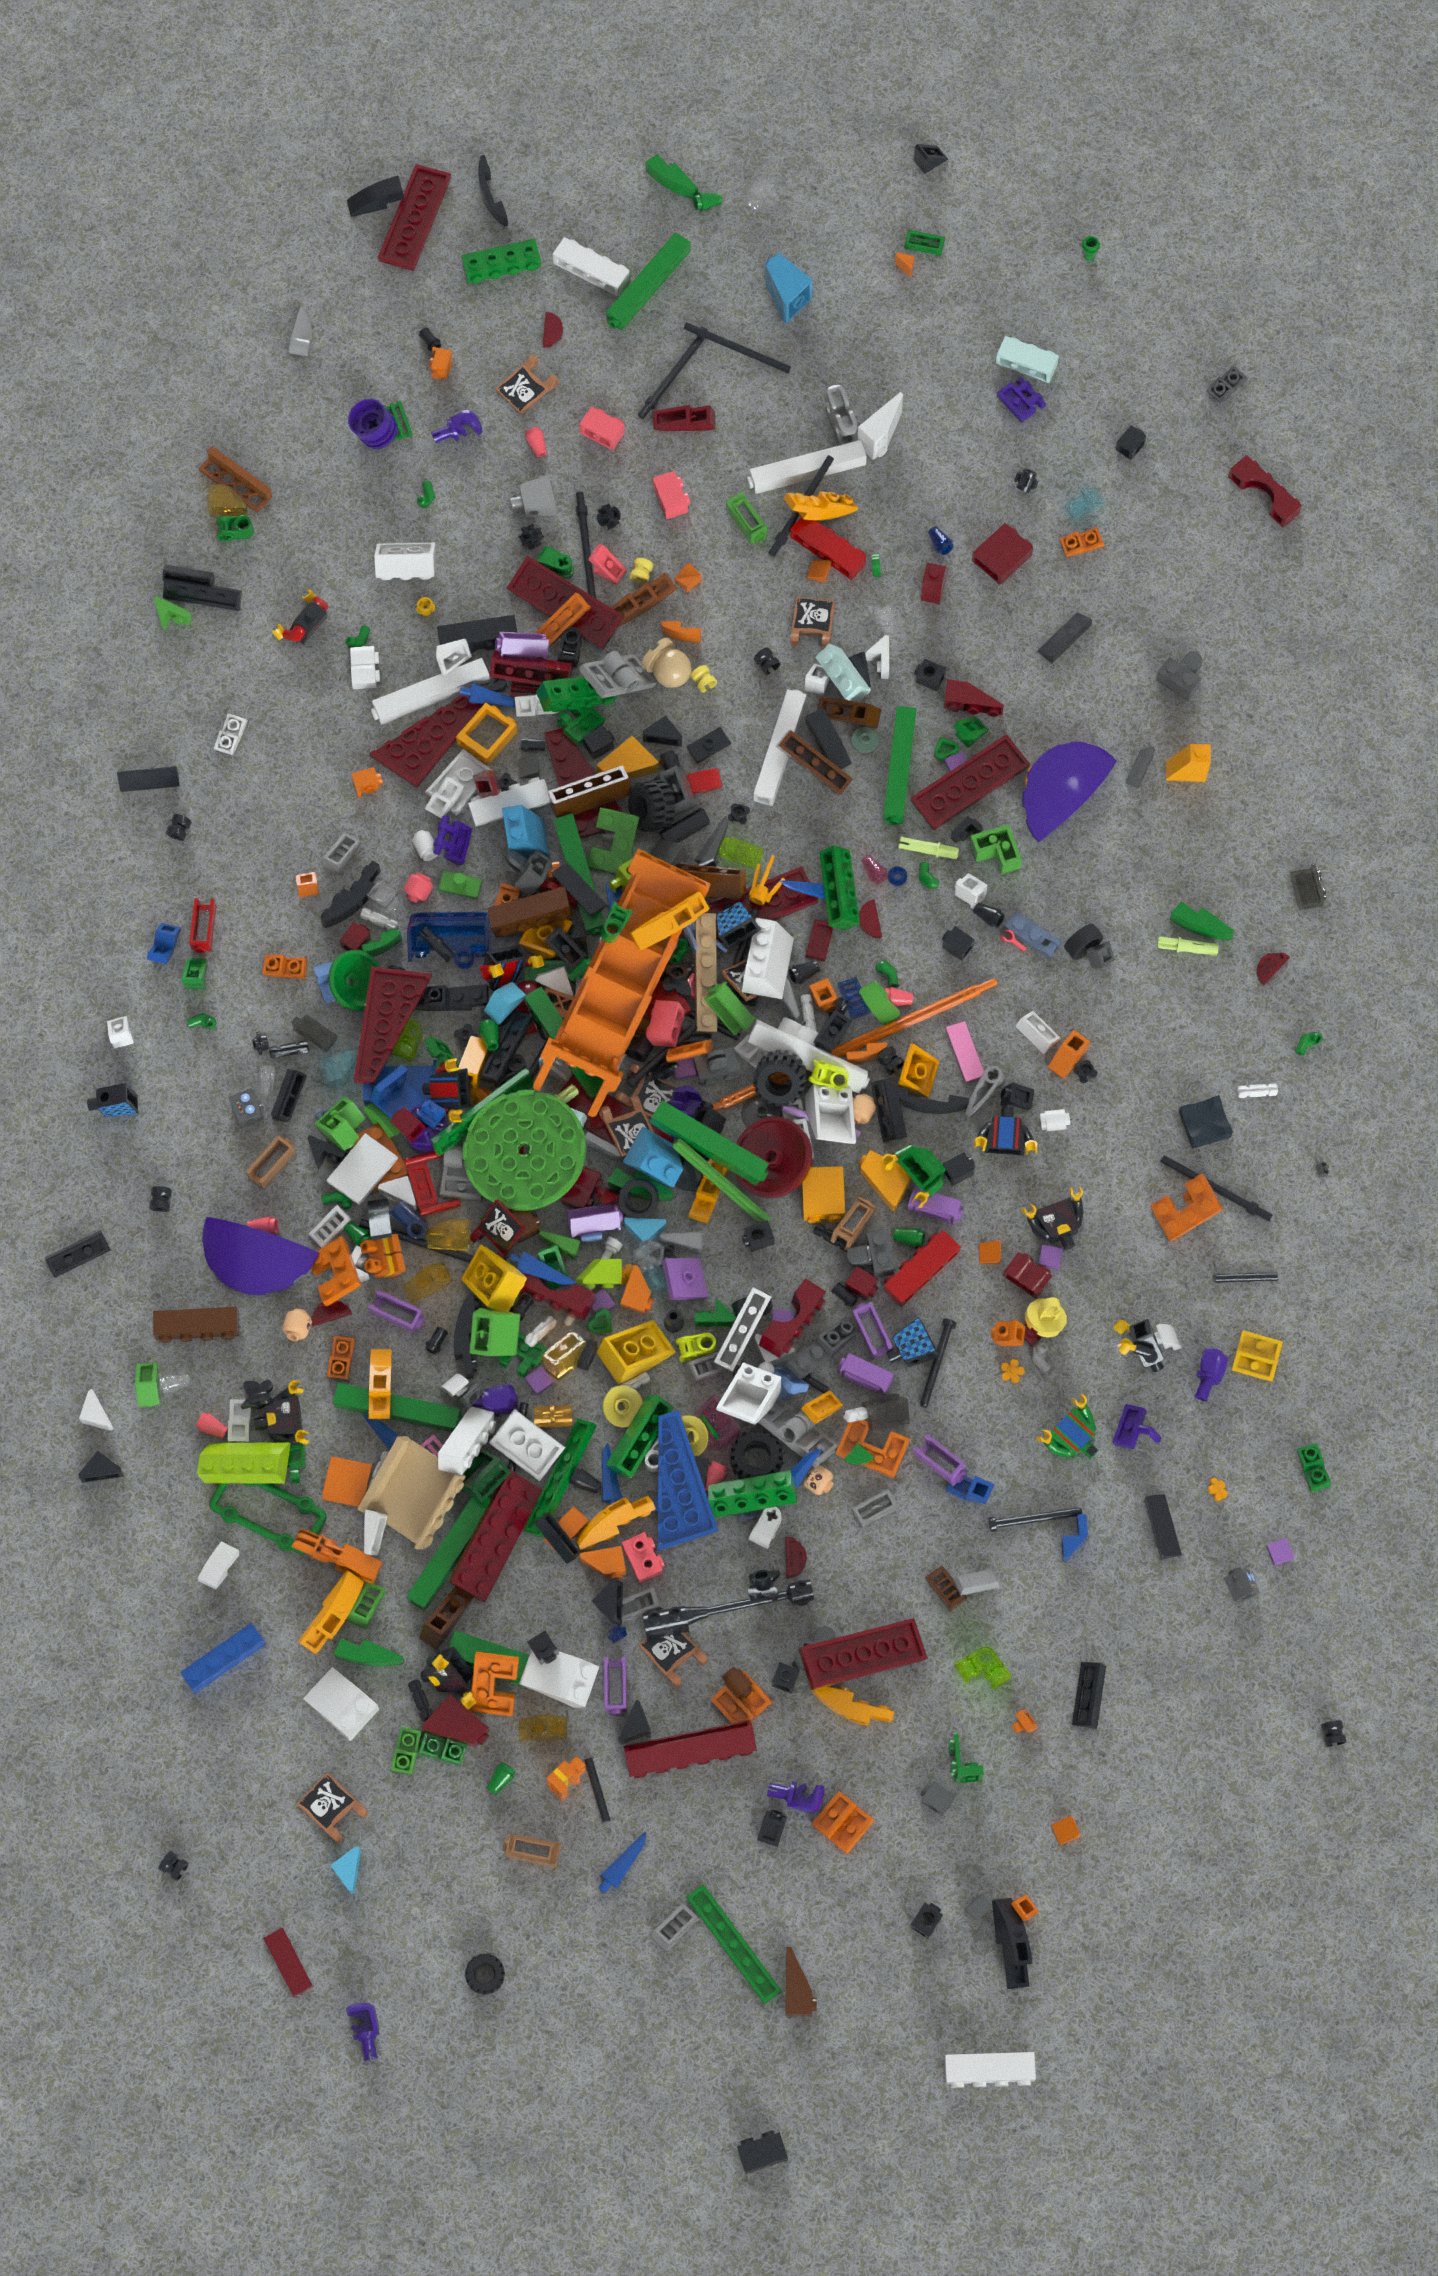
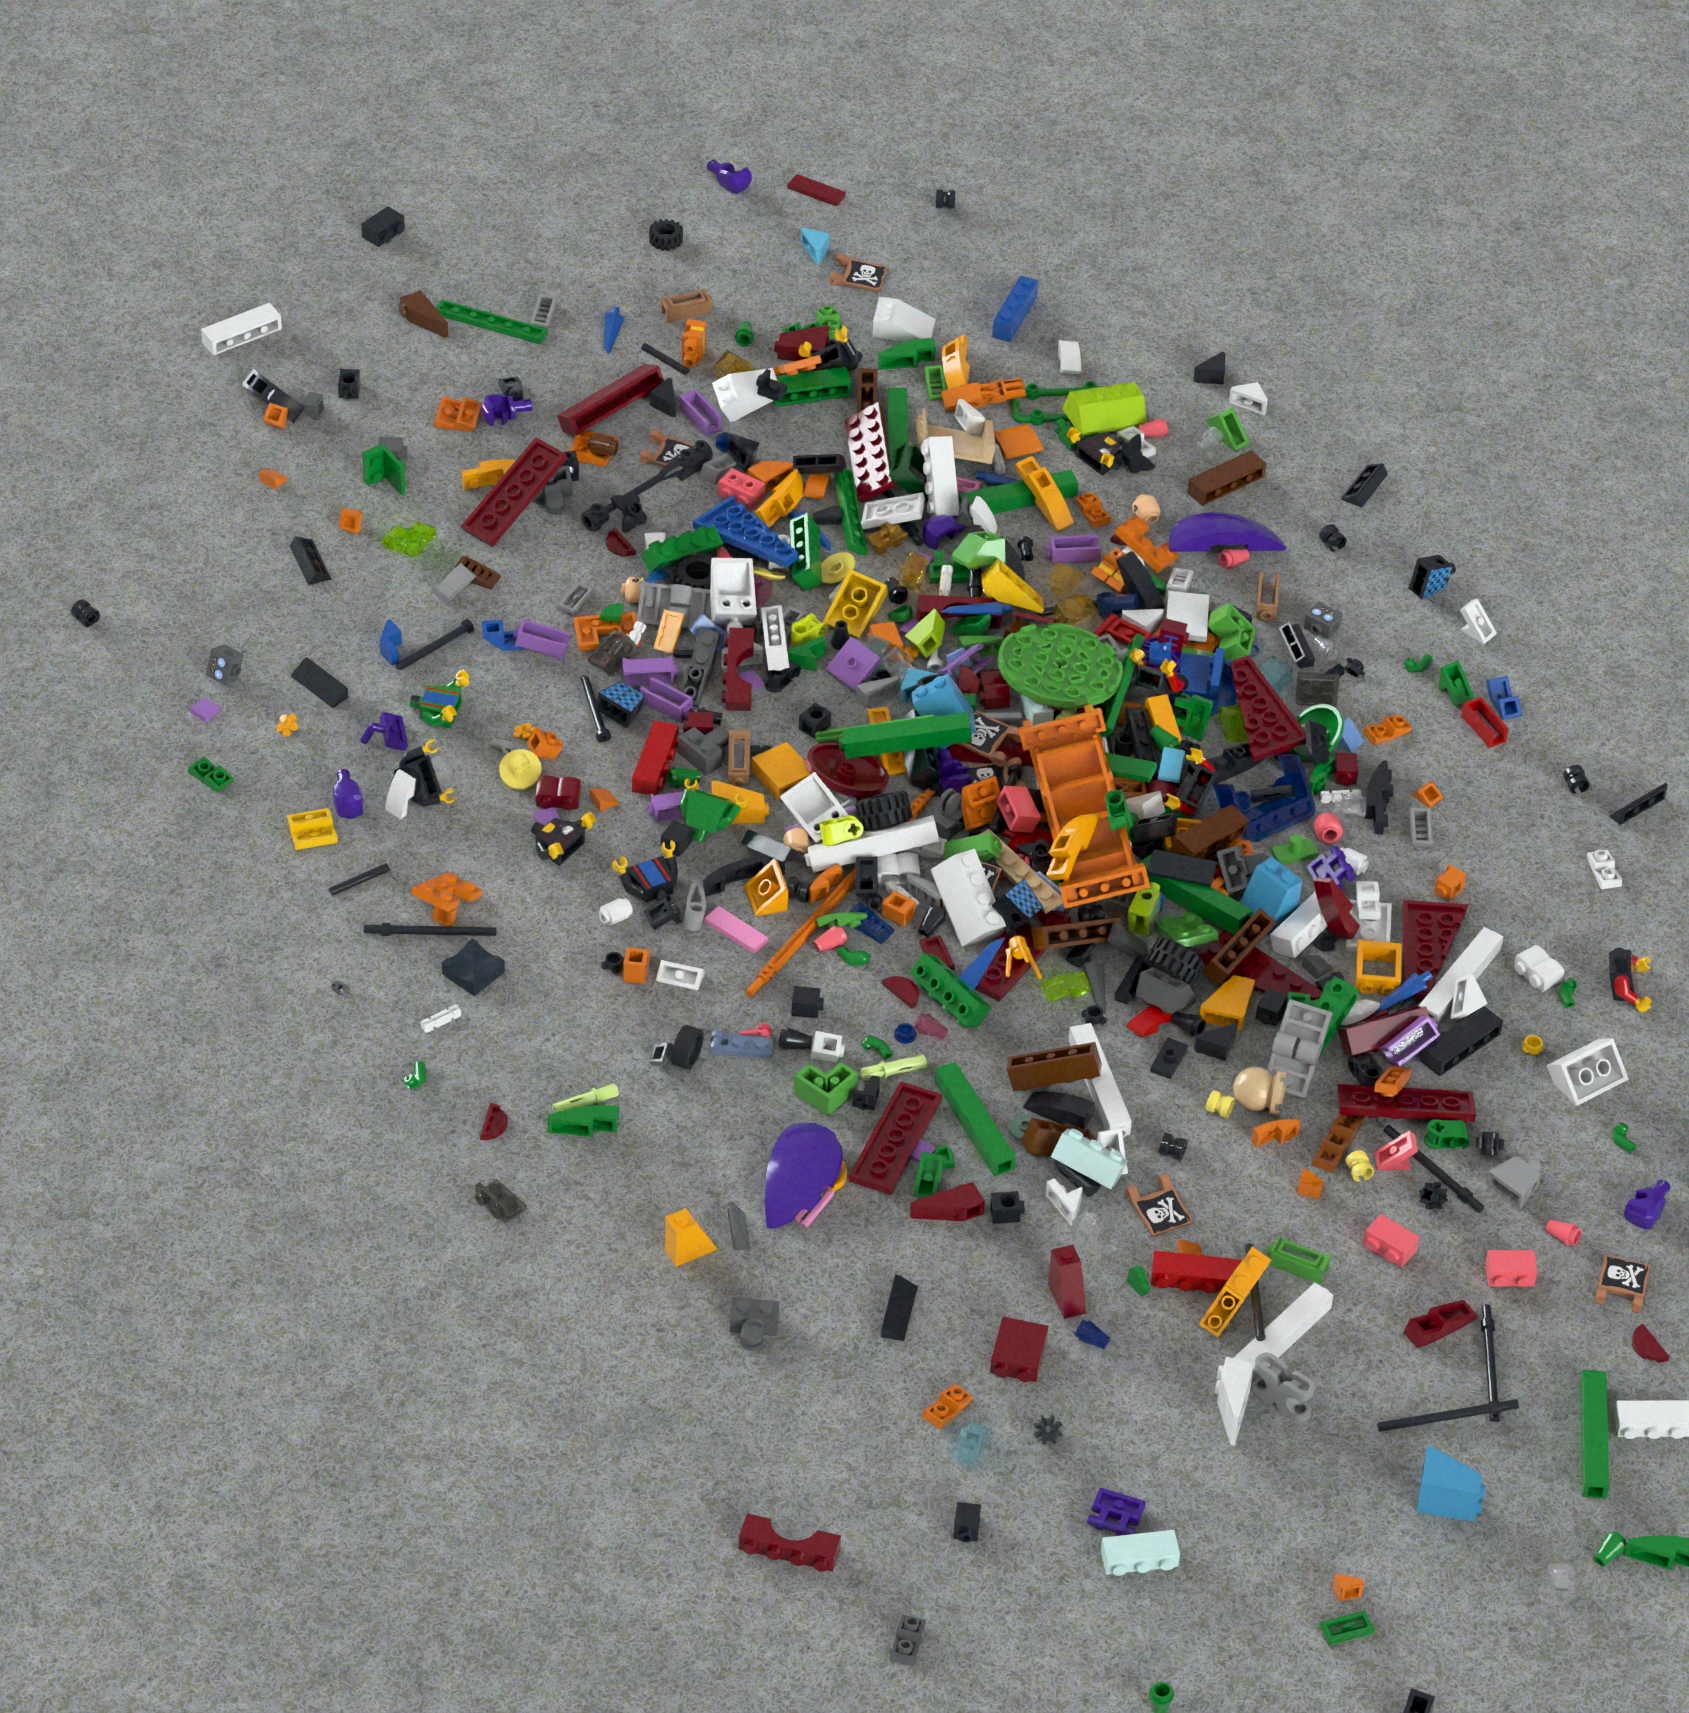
camera: 145 degrees right, 25 degrees down
(369, 957) = (1317, 742): none -> black plate

